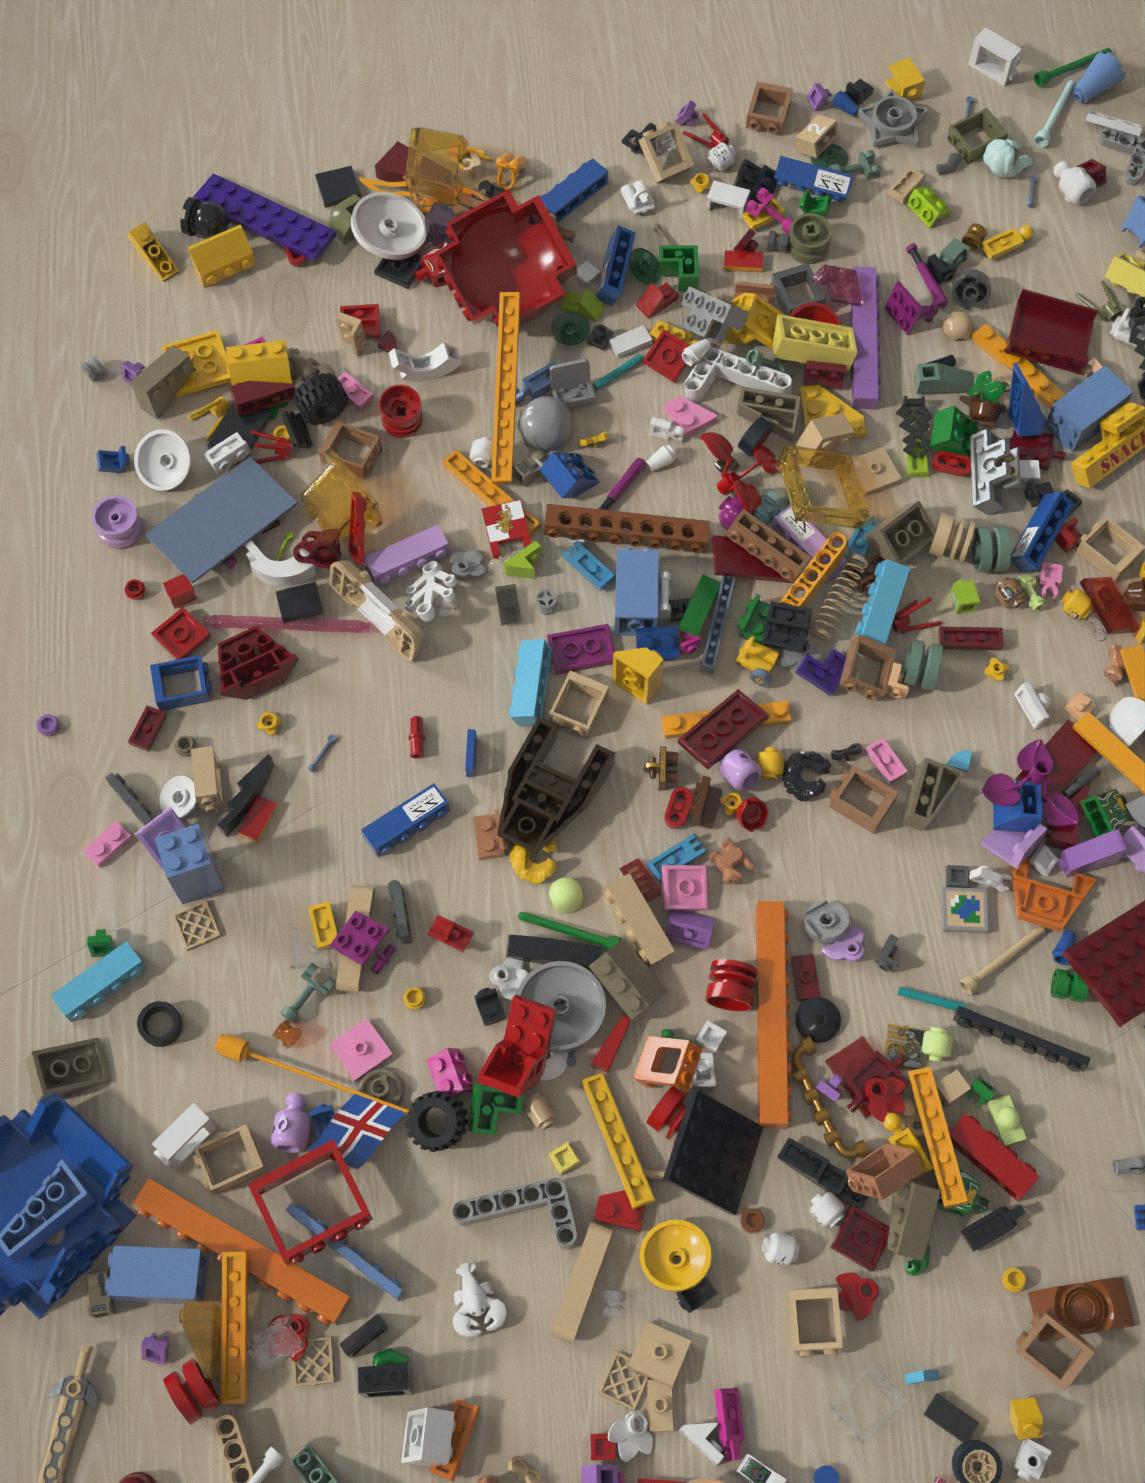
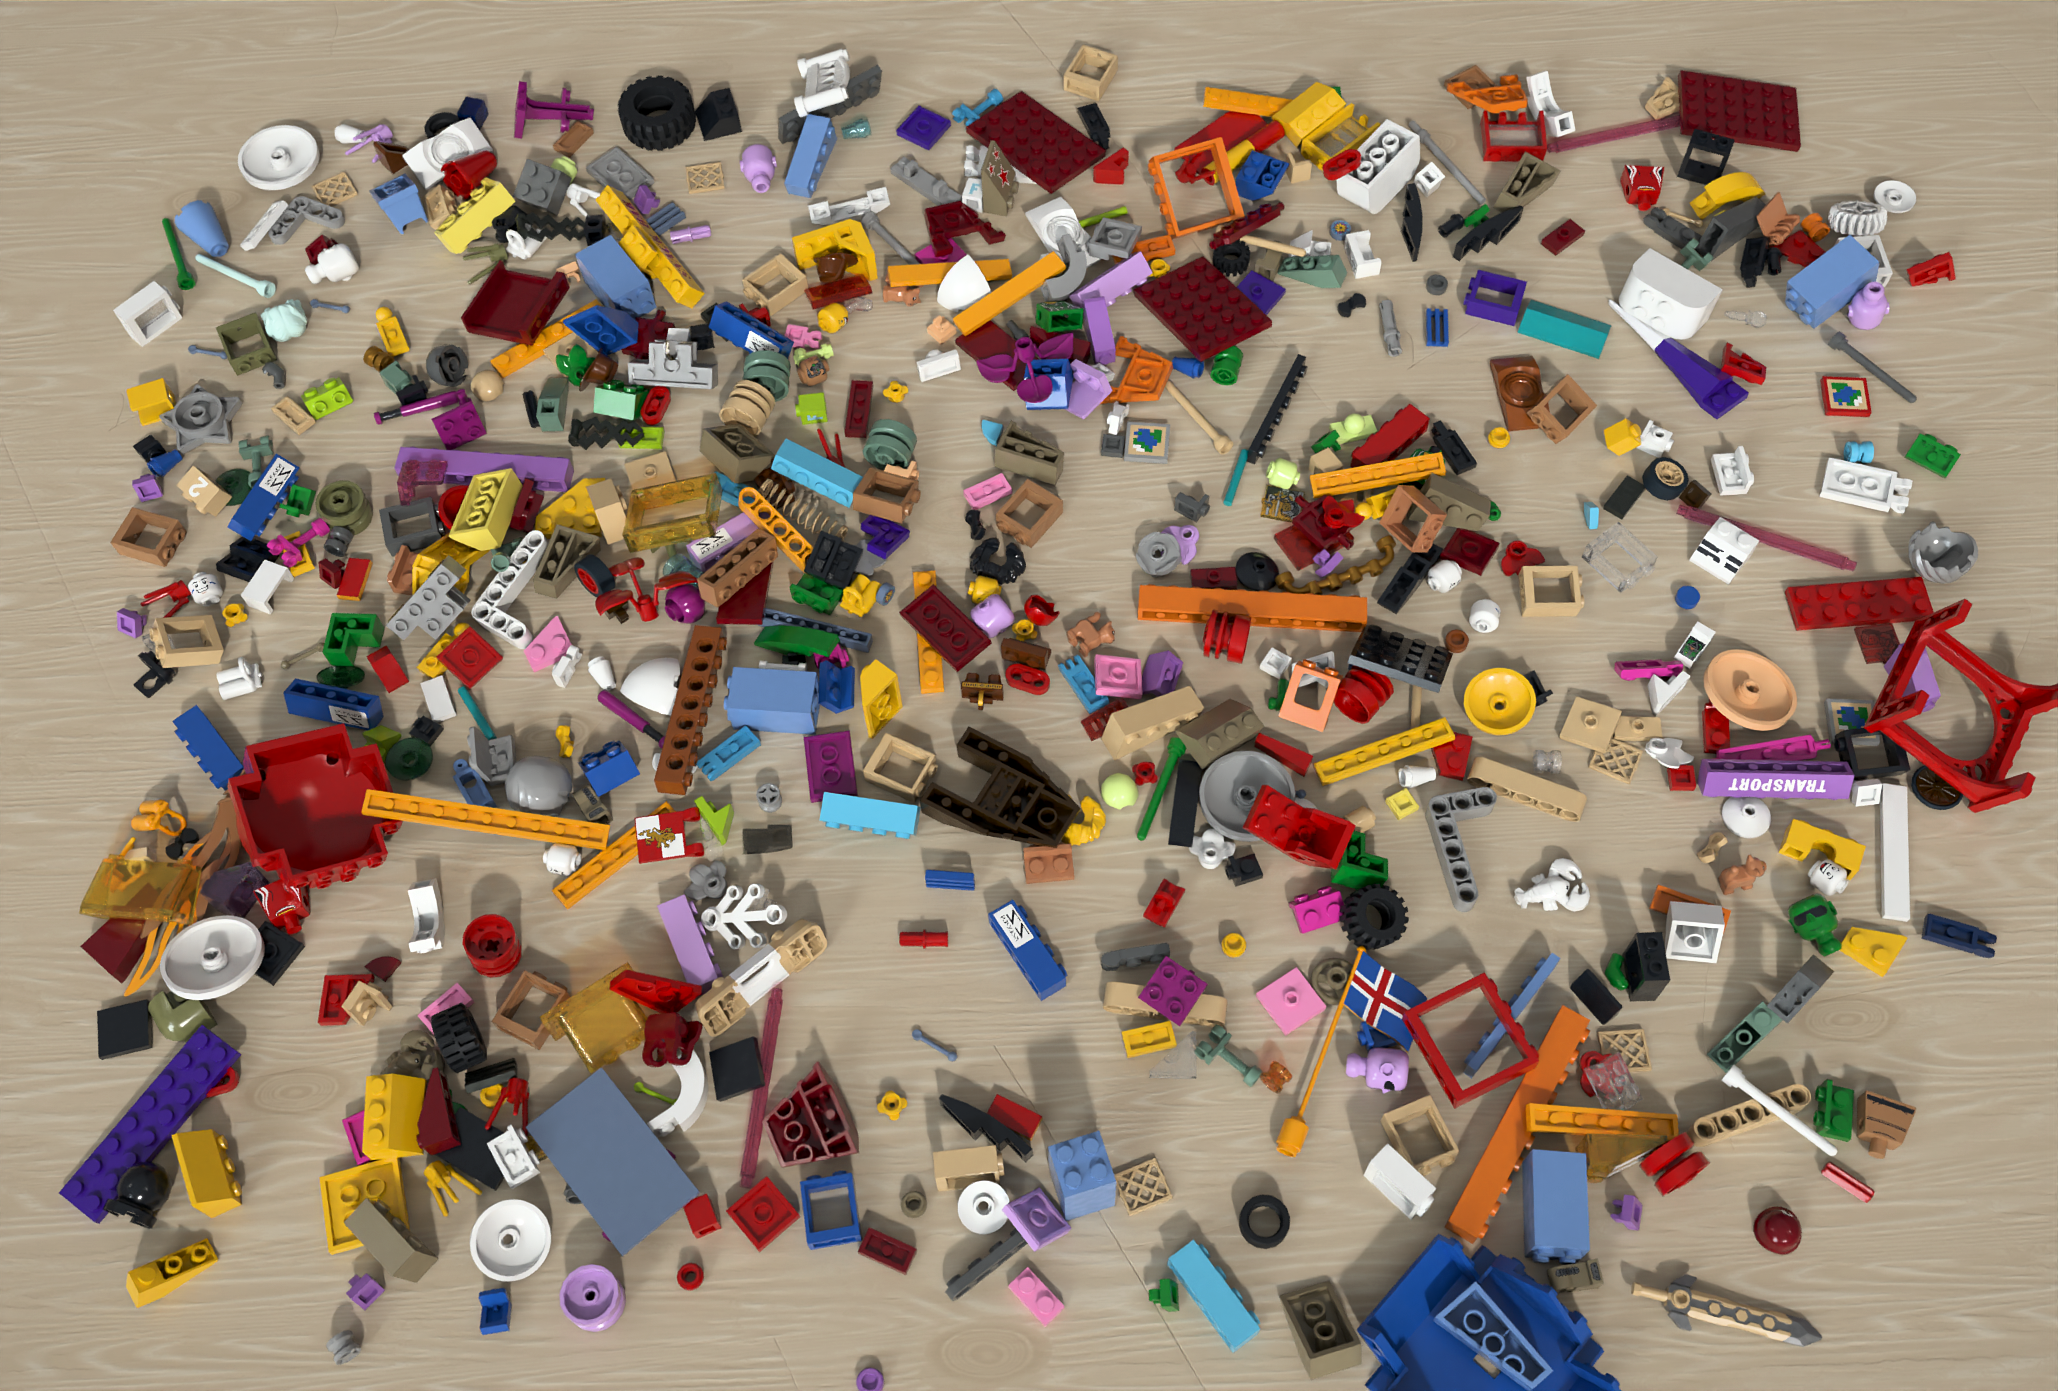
camera: 85 degrees left, 5 degrees down
(581, 912) = (1142, 767): none -> red plate
(593, 1171) = (1415, 775): none -> white cone
(649, 496) = (654, 684): none -> white brick
(695, 352) = (477, 623): white cone -> none

